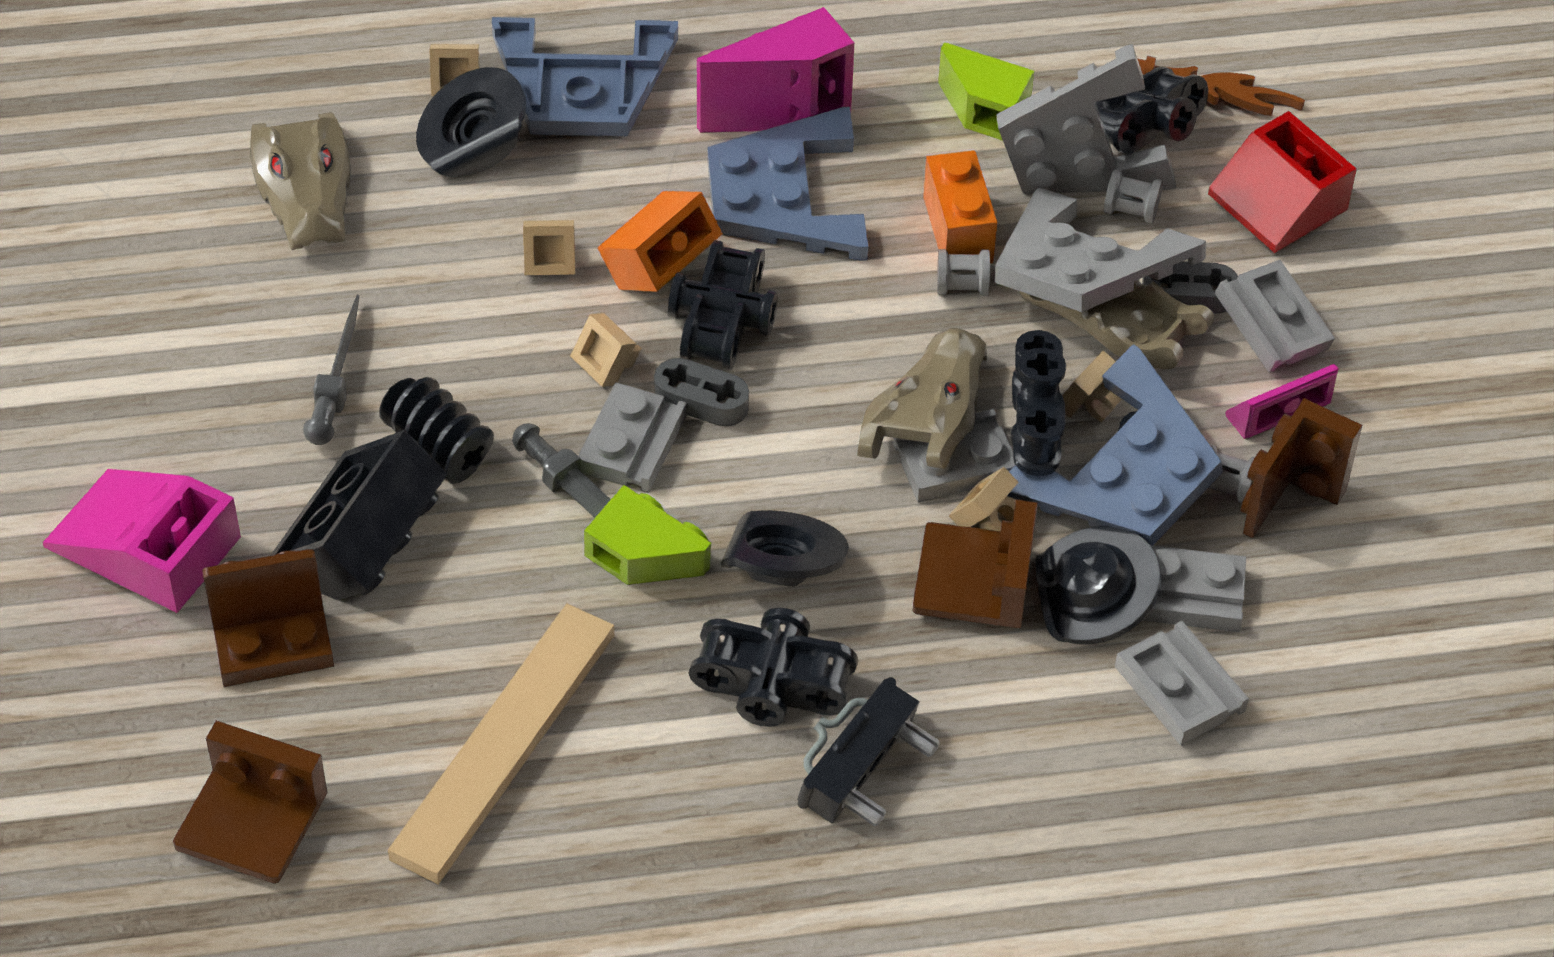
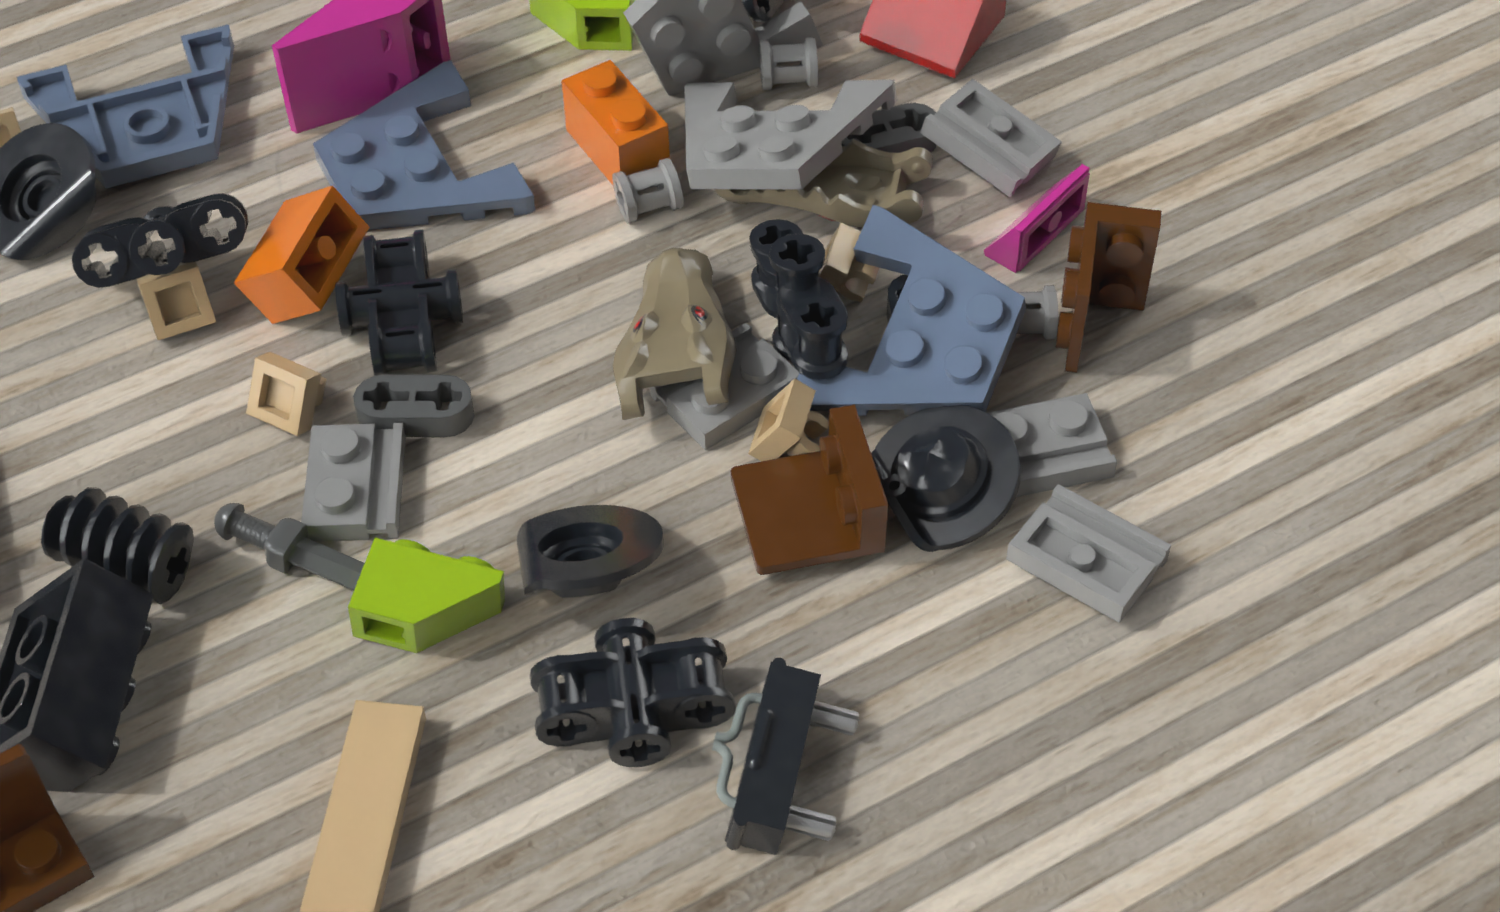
camera: 20 degrees left, 0 degrees up
(536, 202) = (141, 256): none -> black axle

